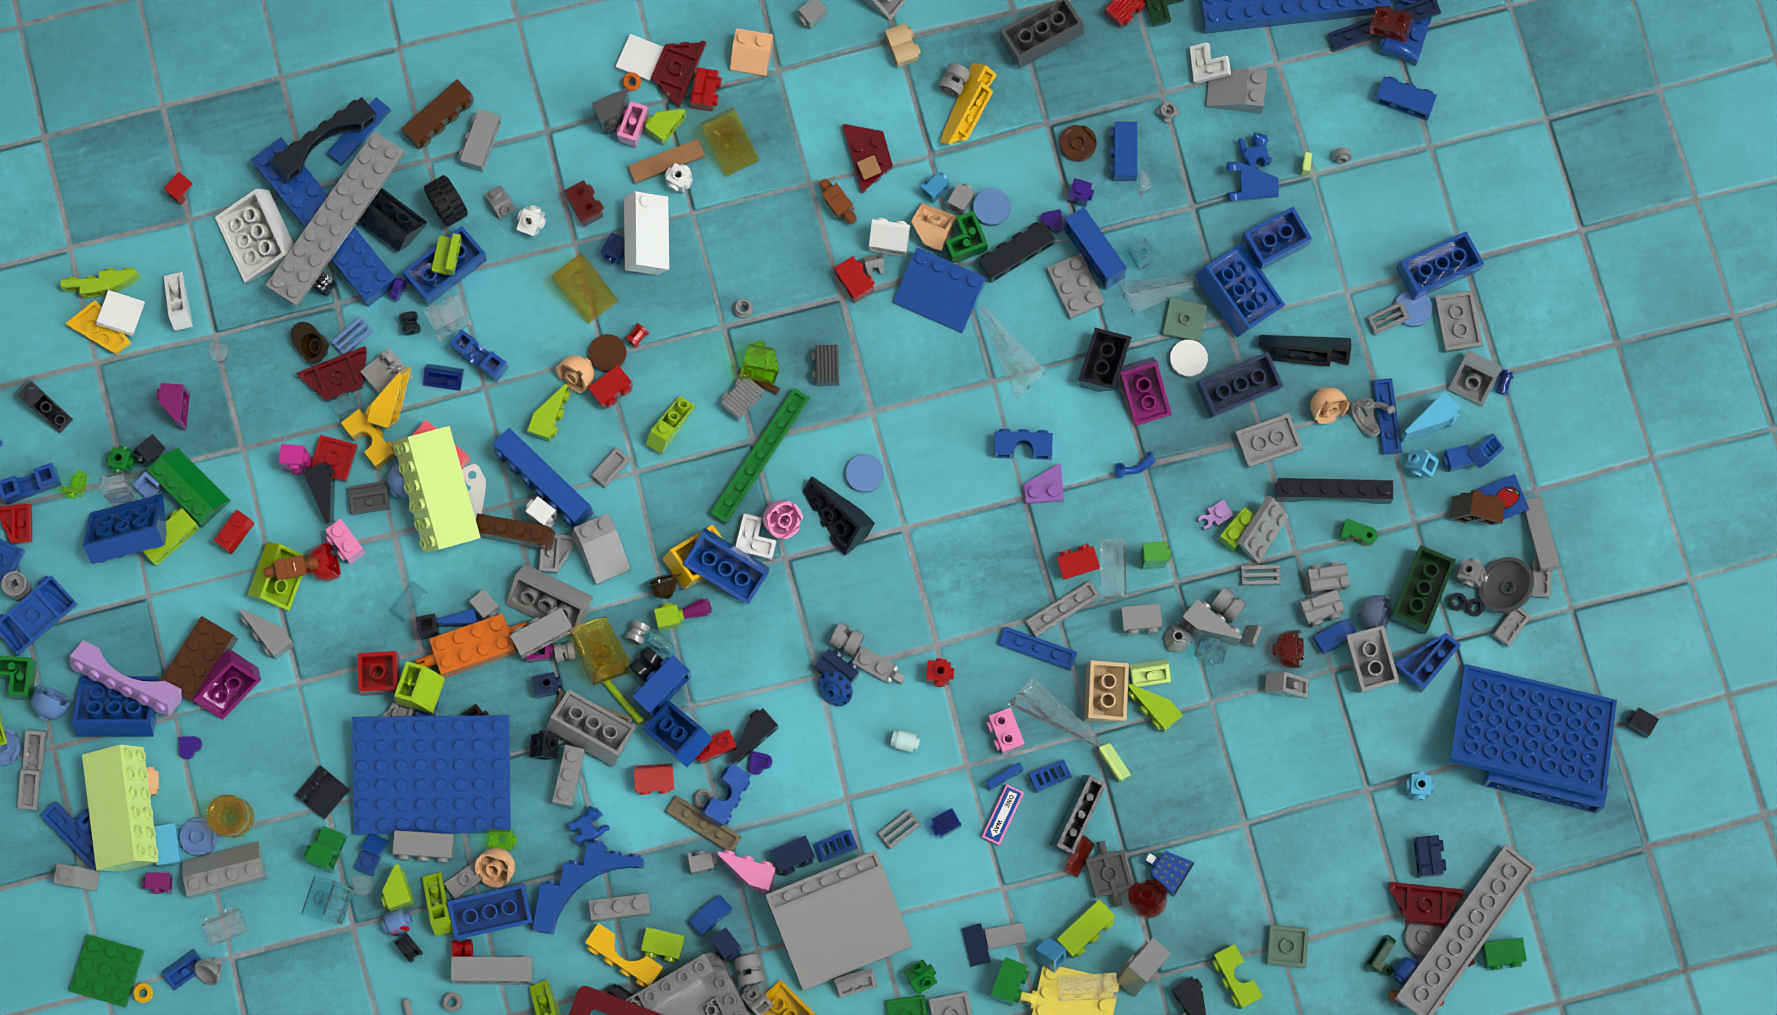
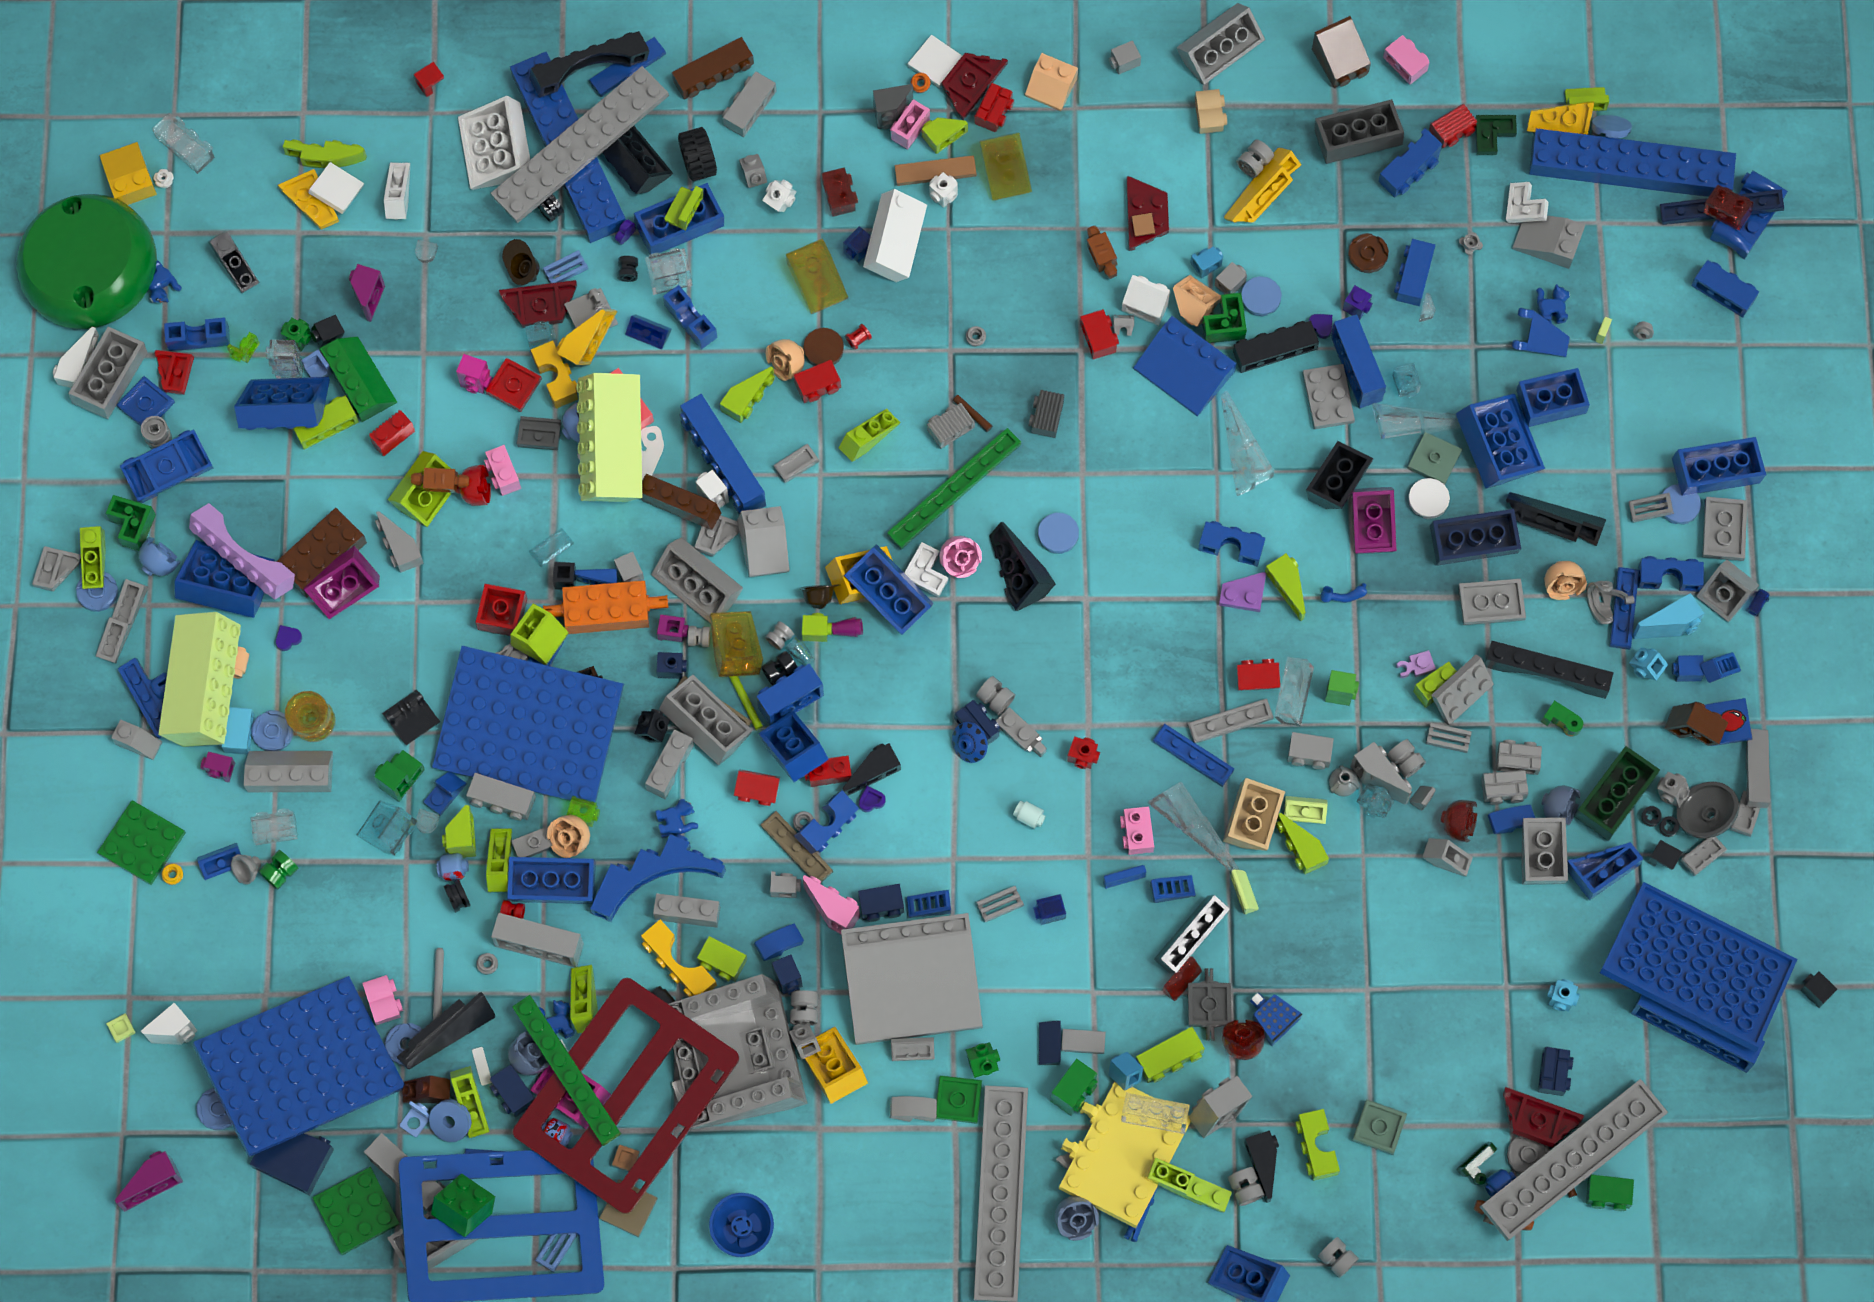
camera: 15 degrees right, 5 degrees down
(232, 967) = (278, 869): none -> green wheel
(322, 485) = (494, 406): black slope -> none
(541, 632) = (679, 609): light grey brick -> none
(760, 363) = (978, 394): clear neon green torso -> none
(1002, 815) = (1112, 916): tile -> none
(1080, 465) = (1286, 579): none -> lime slope
(1096, 51) = (1411, 164): none -> blue wedge
(1436, 370) = (1688, 572): none -> blue arch
(1478, 635) = (1665, 855): none -> black panel

